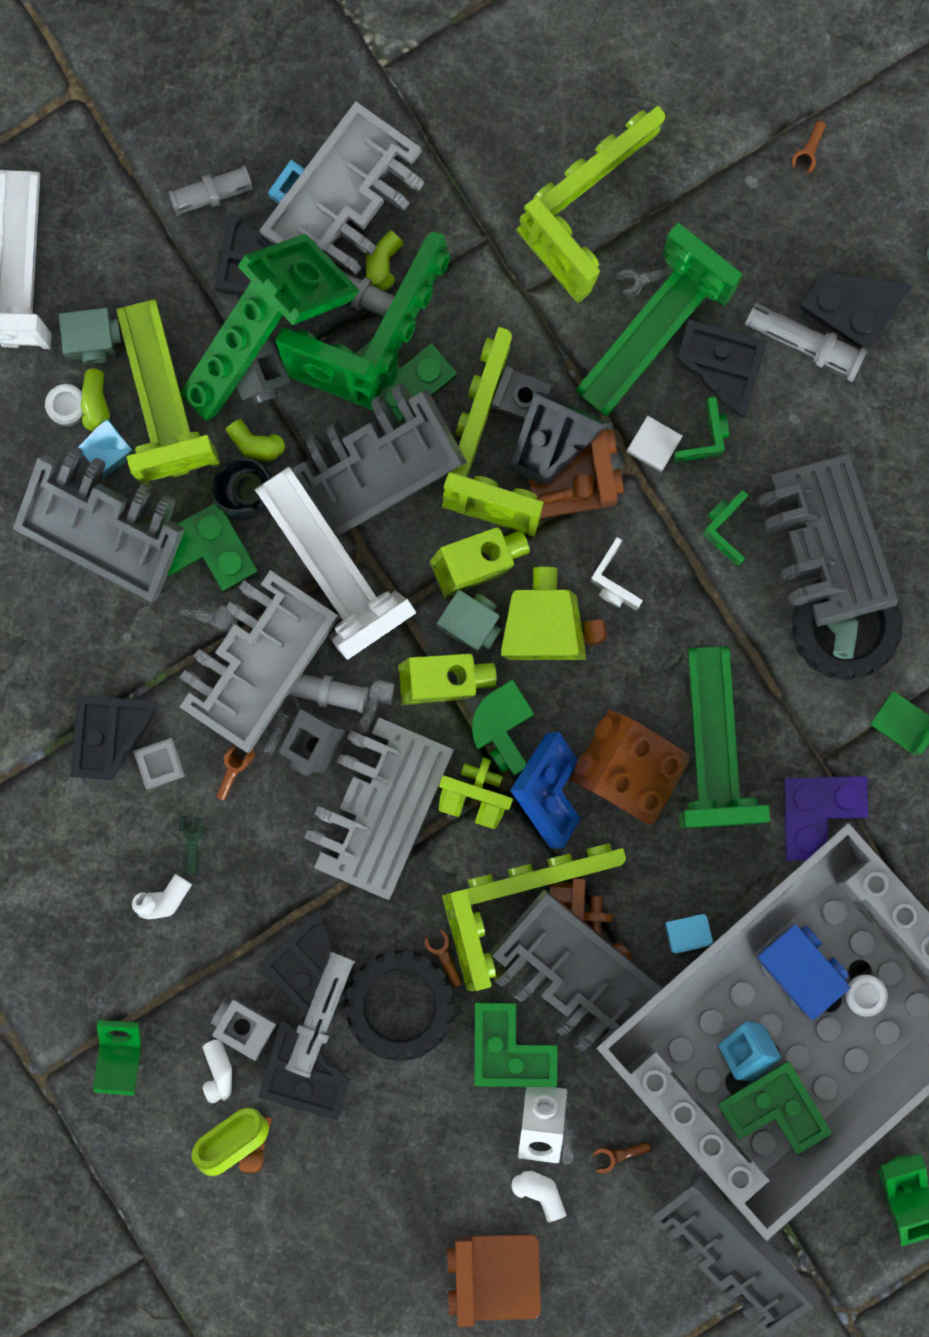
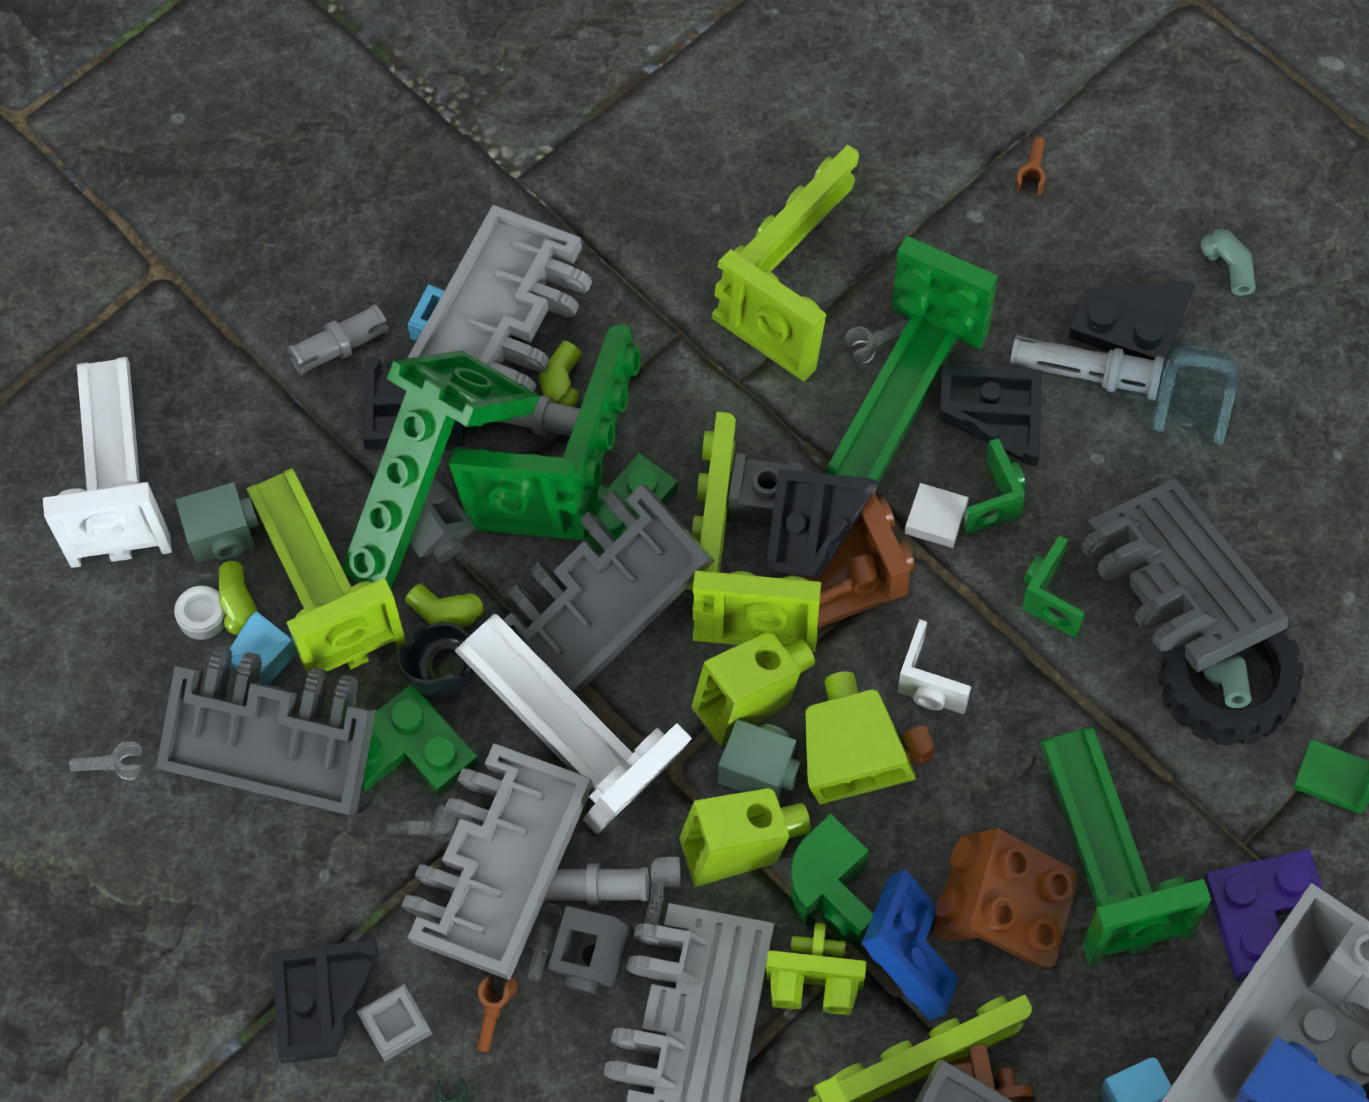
camera: 15 degrees left, 20 degrees down
(889, 374) = (1200, 357): none -> clear light blue piece

